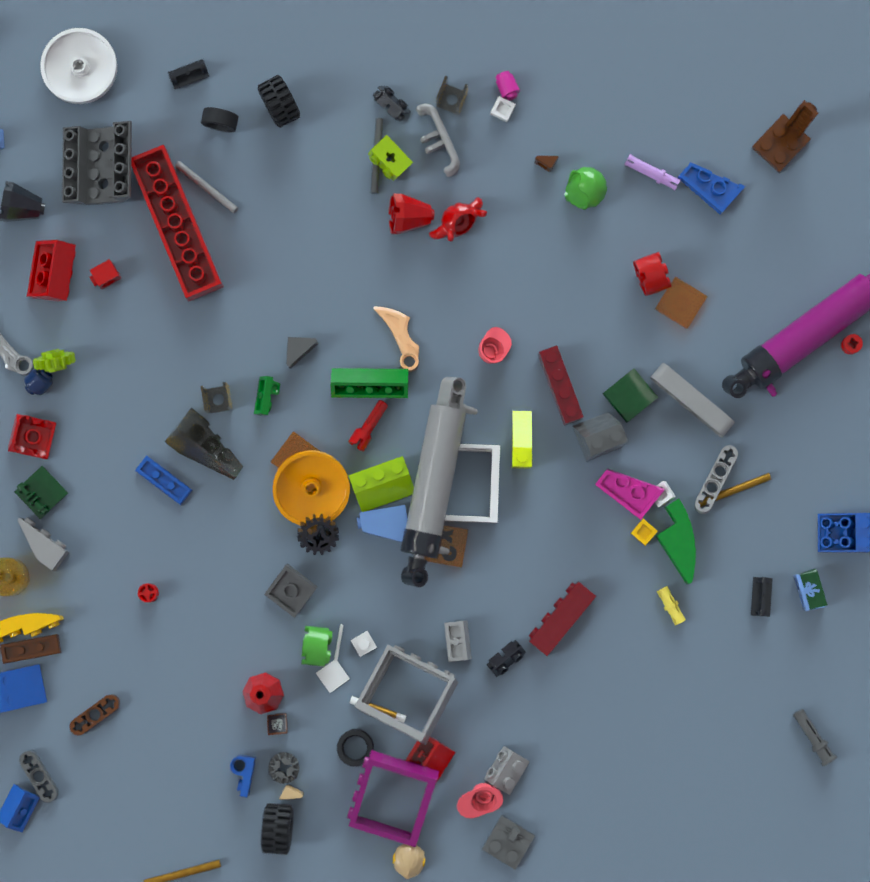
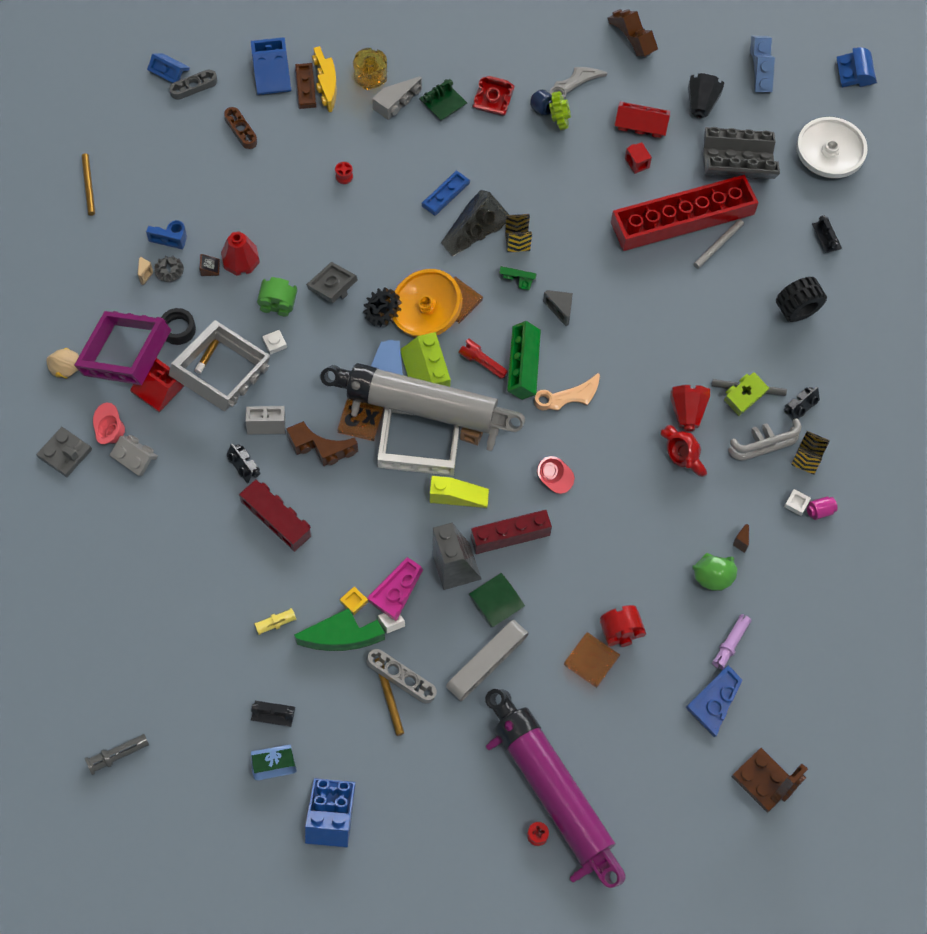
camera: 90 degrees right, 20 degrees down
(219, 119) = (783, 252): black tyre -> none
(277, 829) = (112, 251): black tyre -> none
(333, 674) = (250, 315): white piece -> none
(488, 573) = (328, 450): none -> reddish brown arch

